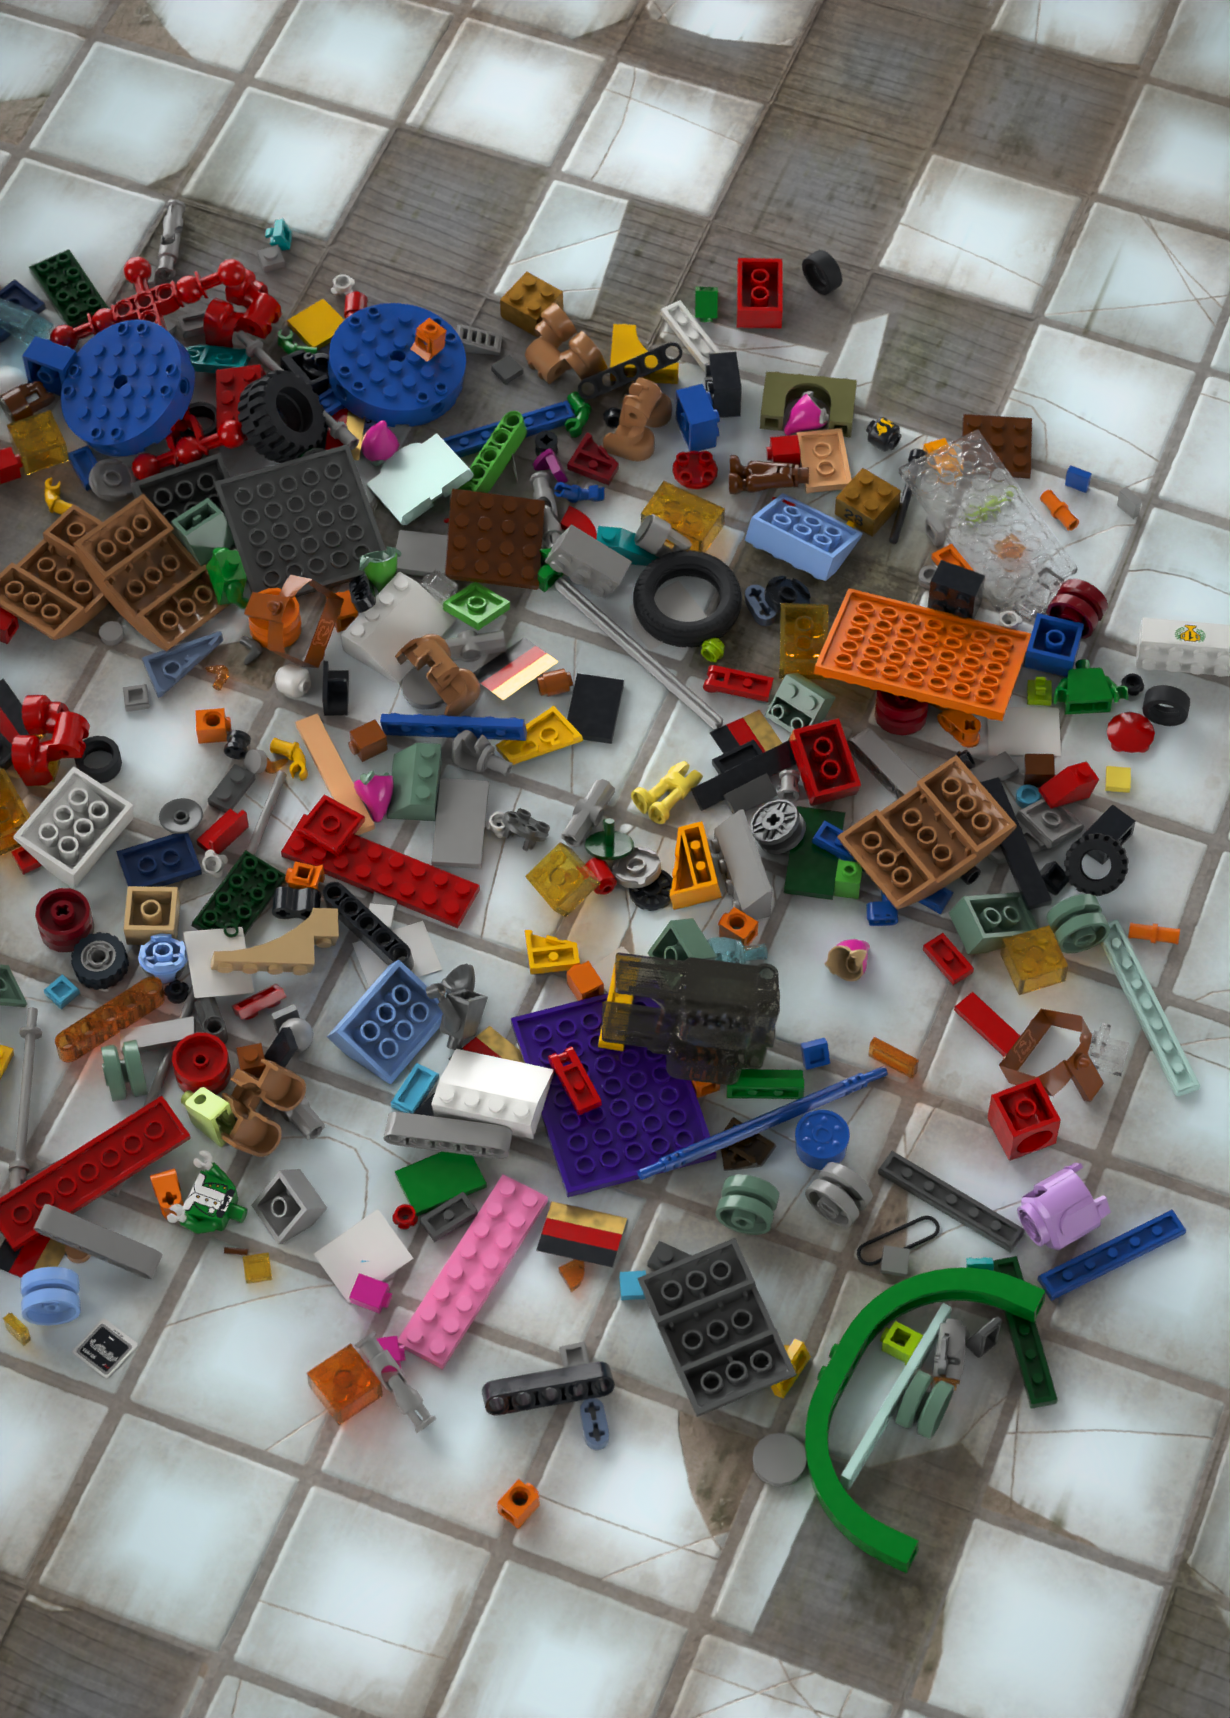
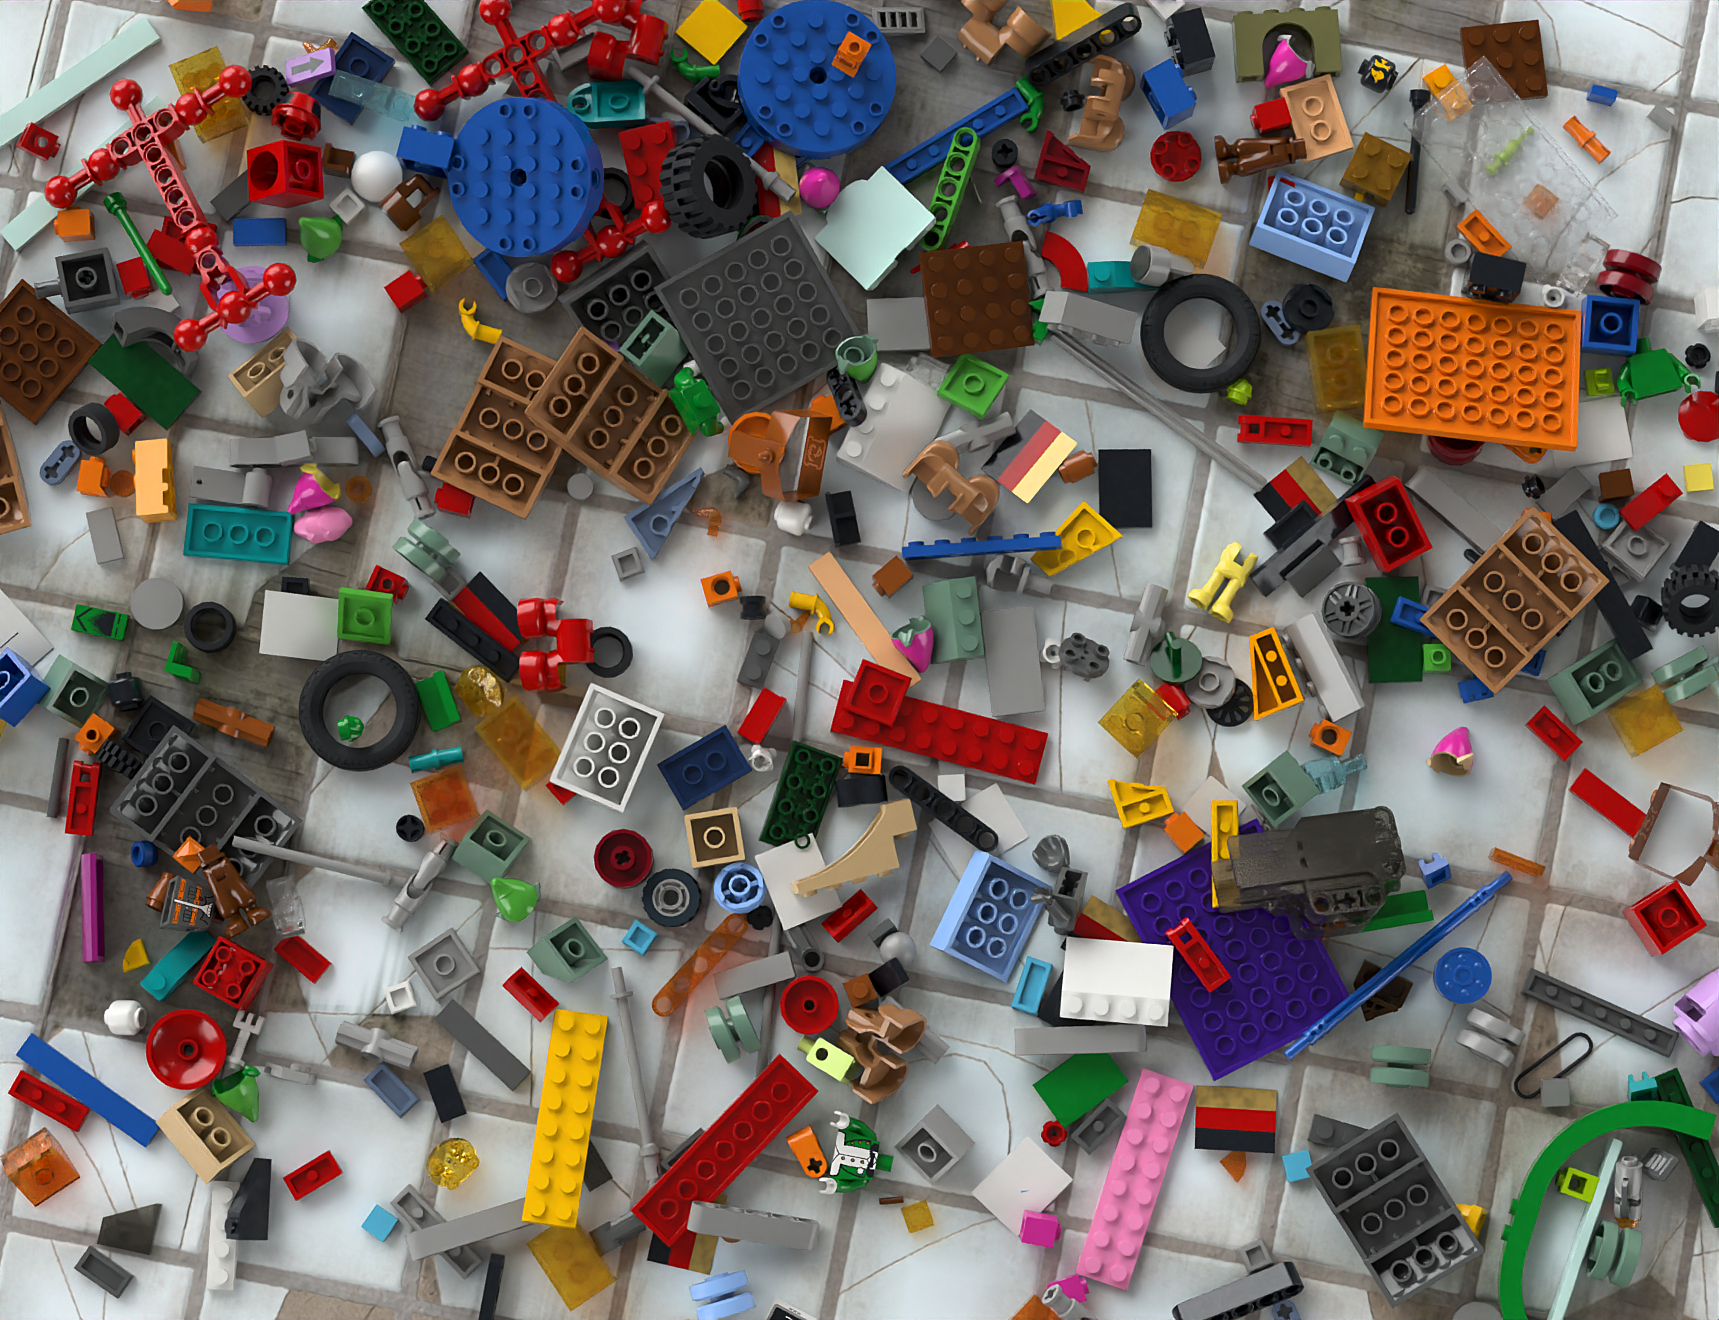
camera: 10 degrees left, 25 degrees up
(178, 809) = (711, 697): dark grey piece -> none

